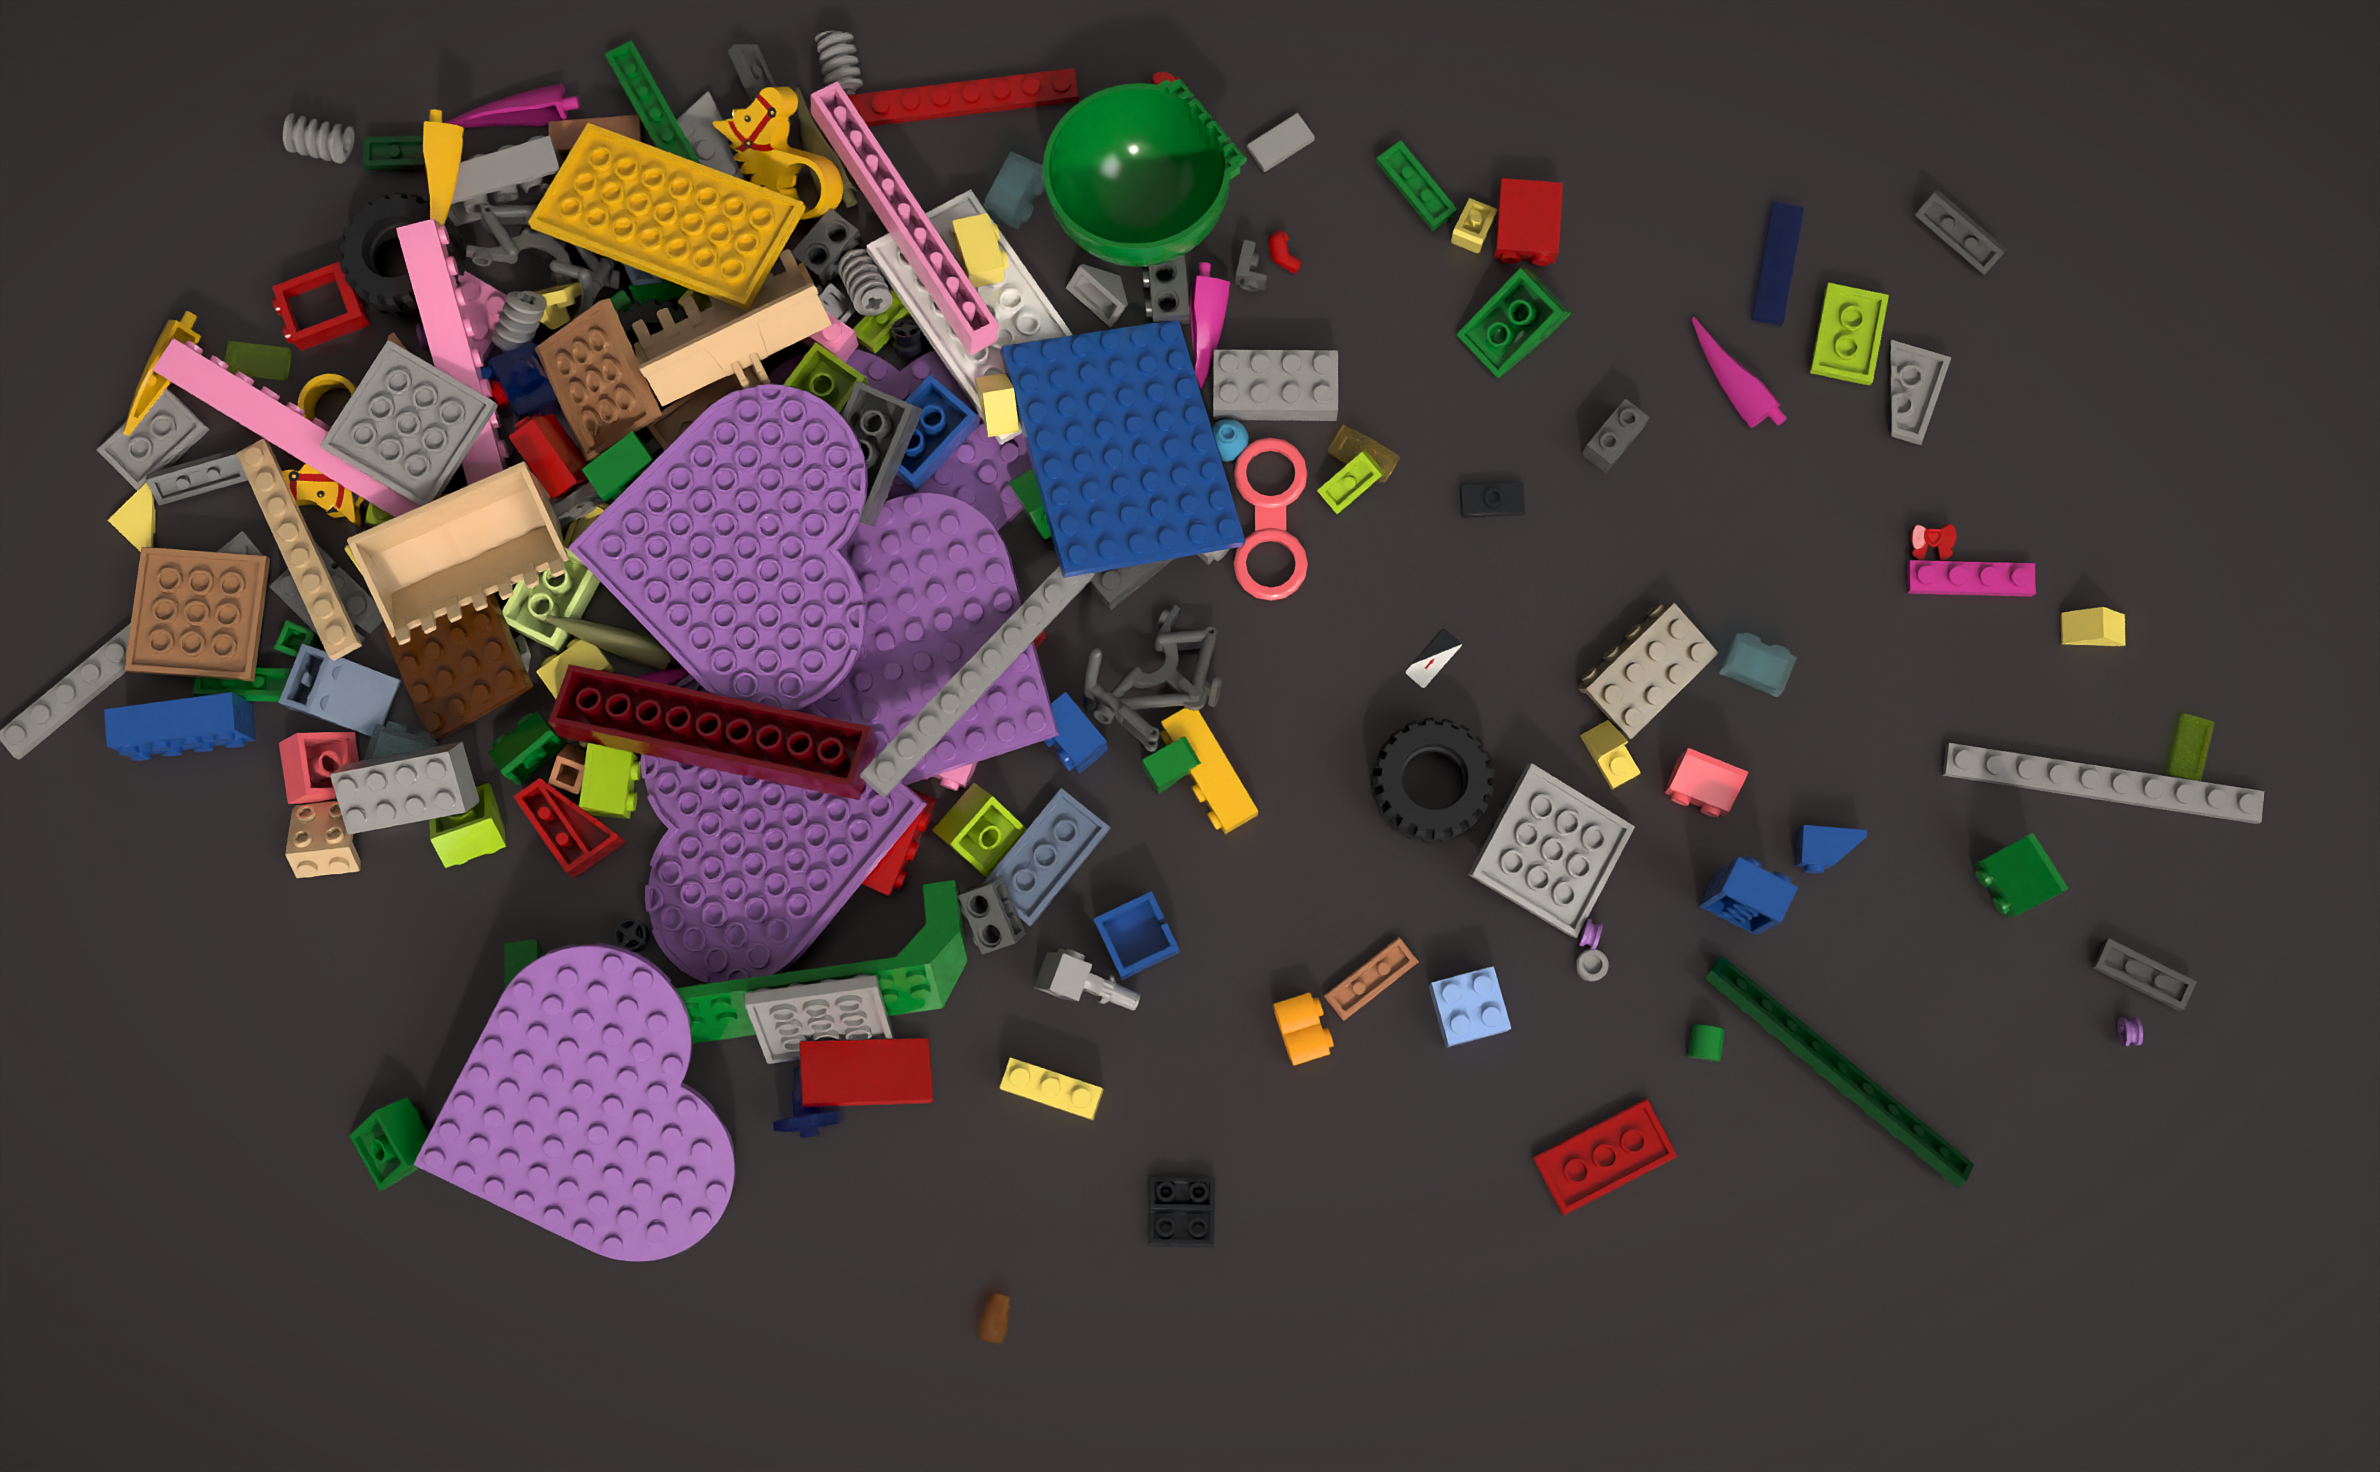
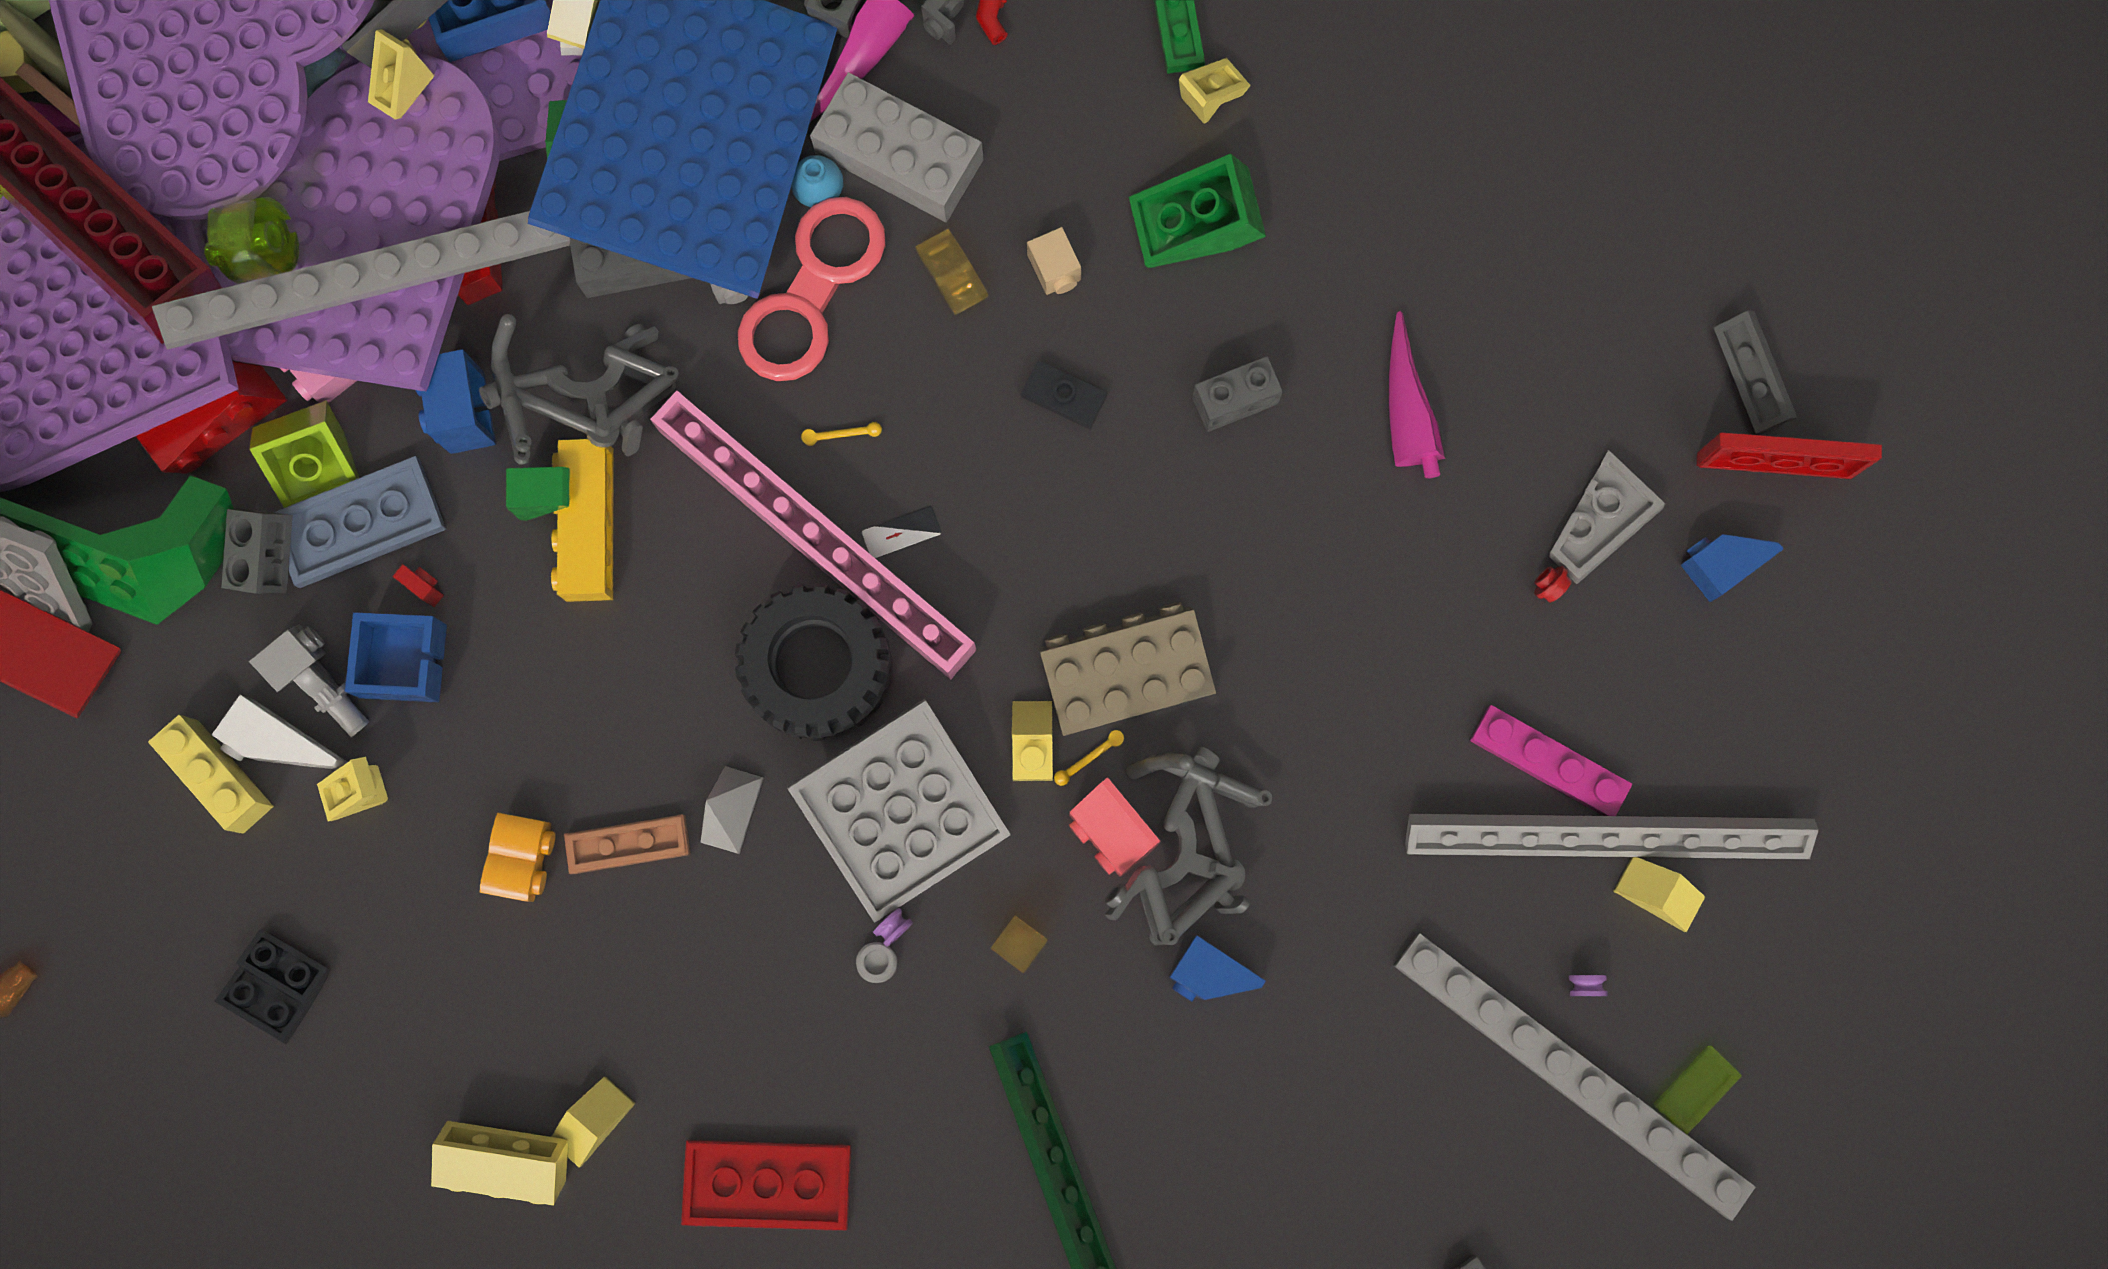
camera: 30 degrees right, 0 degrees up
(650, 669) = (49, 91): none -> nougat tile
(872, 694) = (251, 240): none -> clear neon green brick
(899, 523) = (396, 75): none -> light yellow slope
(1076, 1042) = (264, 736): none -> white slope
(1118, 876) = (419, 583): none -> red plate
(1156, 1046) = (352, 789): none -> light yellow slope
(1330, 625) = (809, 437): none -> yellow hinge
(1351, 481) = (917, 292): lime plate -> none
(1379, 691) = (814, 535): none -> bright pink brick
(1417, 1240) = (499, 1163): none -> light yellow brick
(1429, 915) = (730, 809): none -> light grey slope
(1433, 409) = (1054, 262): none -> tan brick
(1460, 1181) = (592, 1119): none -> light yellow slope
(1469, 1006) = (710, 934): light blue brick -> none
(1528, 221) = (1275, 114): red brick -> none
(1665, 722) = (1115, 739): none -> yellow hinge
(1685, 897) = (1019, 944): none -> clear yellow brick
(1705, 1042) = (951, 1120): green brick -> none
(1749, 895) = (1079, 981): blue brick -> none
(1758, 664) = (1252, 728): clear light blue brick -> none
(1777, 263) = (1528, 302): clear blue tile -> none
(1796, 773) = (1223, 873): none -> dark grey piece
(1849, 334) = (1564, 419): lime plate -> none
(1905, 453) = (1552, 583): none -> red plate
(1943, 538) = (1543, 699): red piece -> none
(2014, 376) = (1726, 562): none -> blue slope
(2016, 280) = (1788, 455): none -> red tile
(2019, 876) = (1408, 1130): green slope -> none
(2039, 607) = (1610, 836): none -> light grey plate
(2081, 716) = (1588, 985): none -> medium lavender bush

